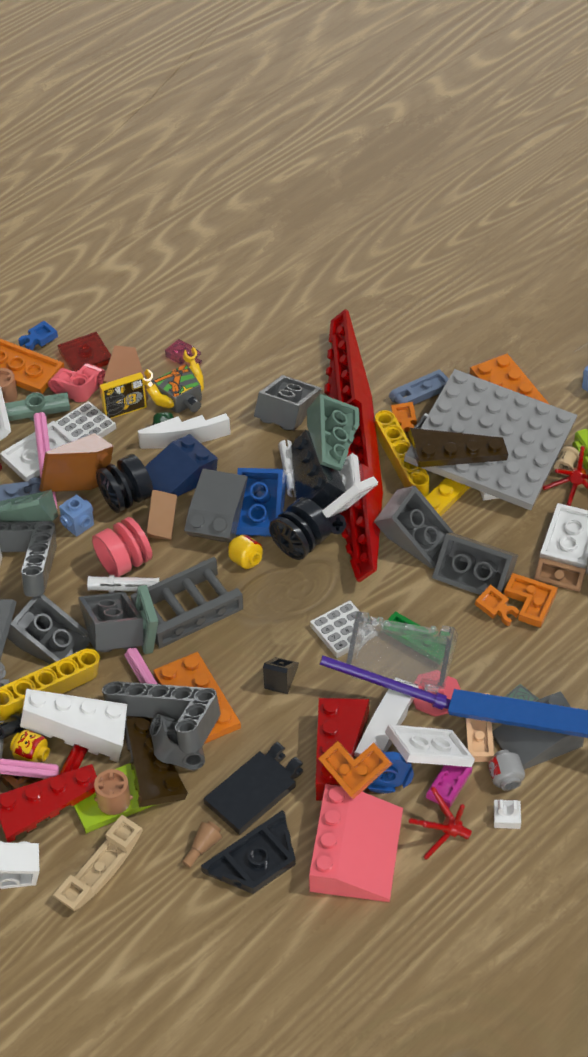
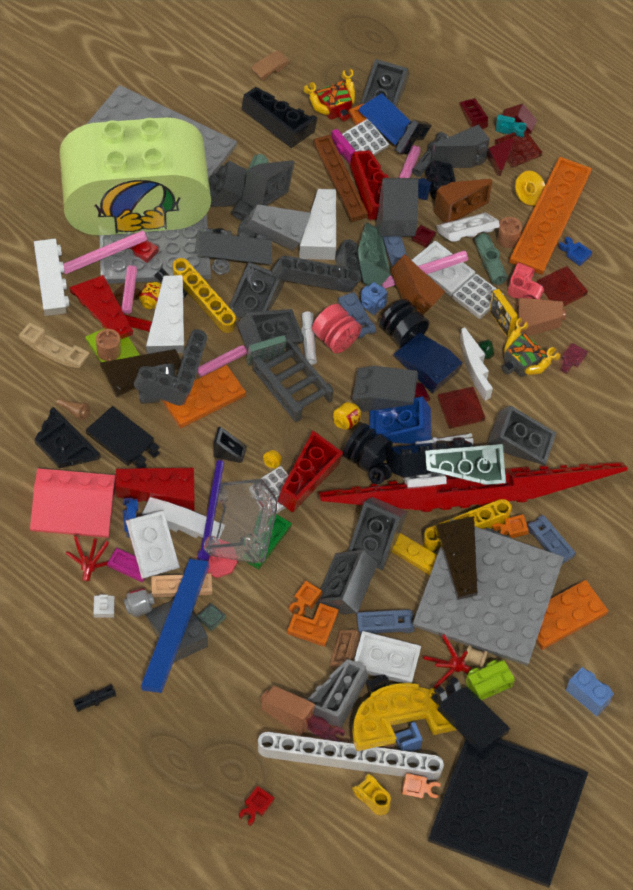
camera: 80 degrees right, 10 degrees up
(81, 541) = (355, 309): none -> sand blue plate
(161, 515) = (378, 353): medium nougat slope -> none
(240, 451) = (461, 407): none -> clear red plate
(300, 628) = (272, 459): none -> yellow plate
(327, 585) = (310, 470): none -> red wedge
(350, 497) = (389, 474): white tile -> none
(356, 773) = (117, 486): orange plate -> none
(525, 536) = (385, 621): none -> sand blue plate

